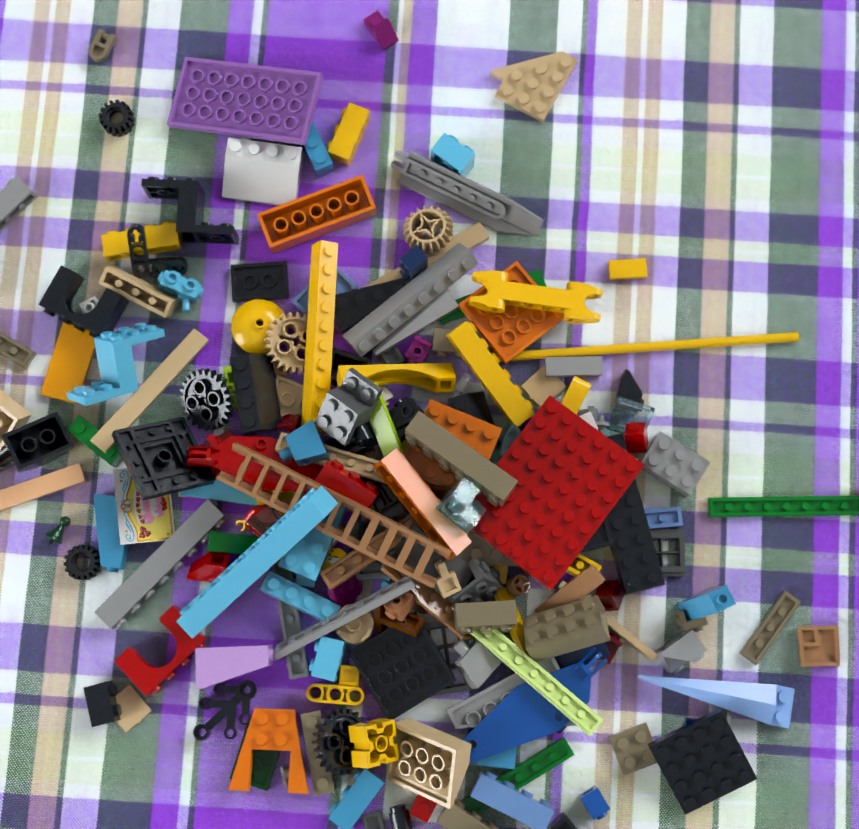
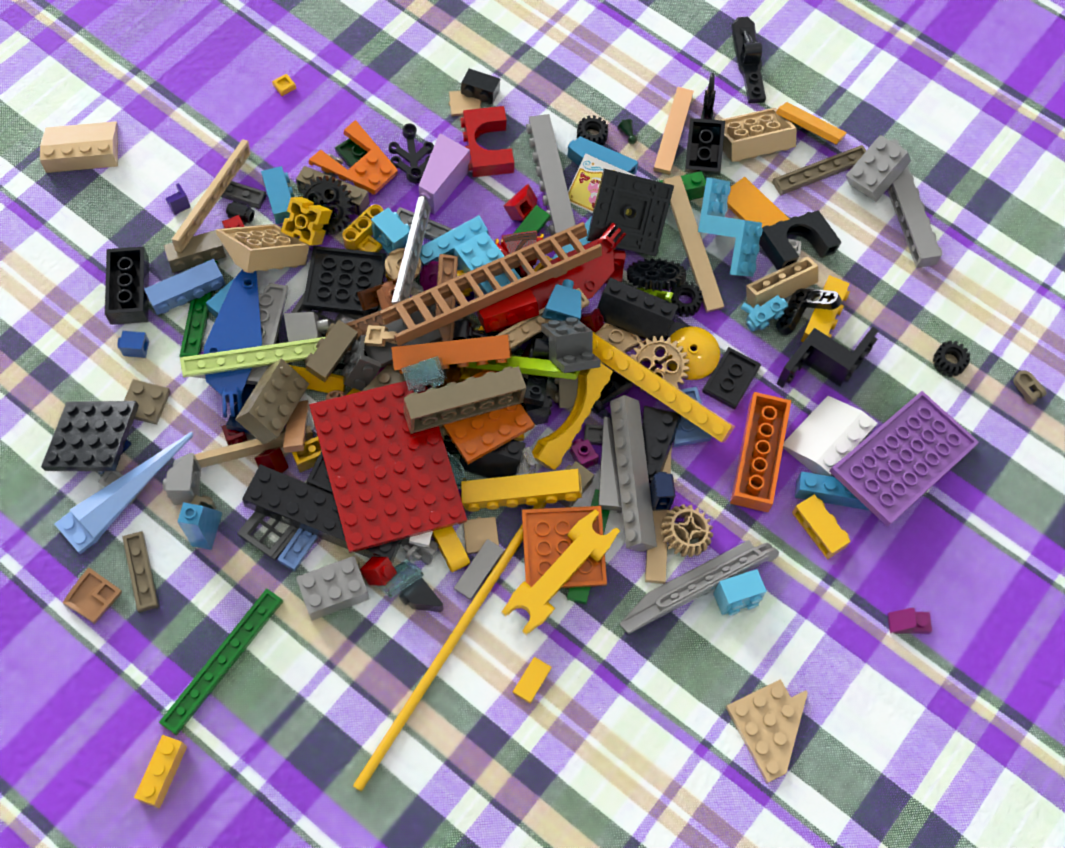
camera: 120 degrees right, 15 degrees down
(210, 353) = (690, 291): none -> black tyre
(256, 560) = (499, 215): medium azure brick -> none

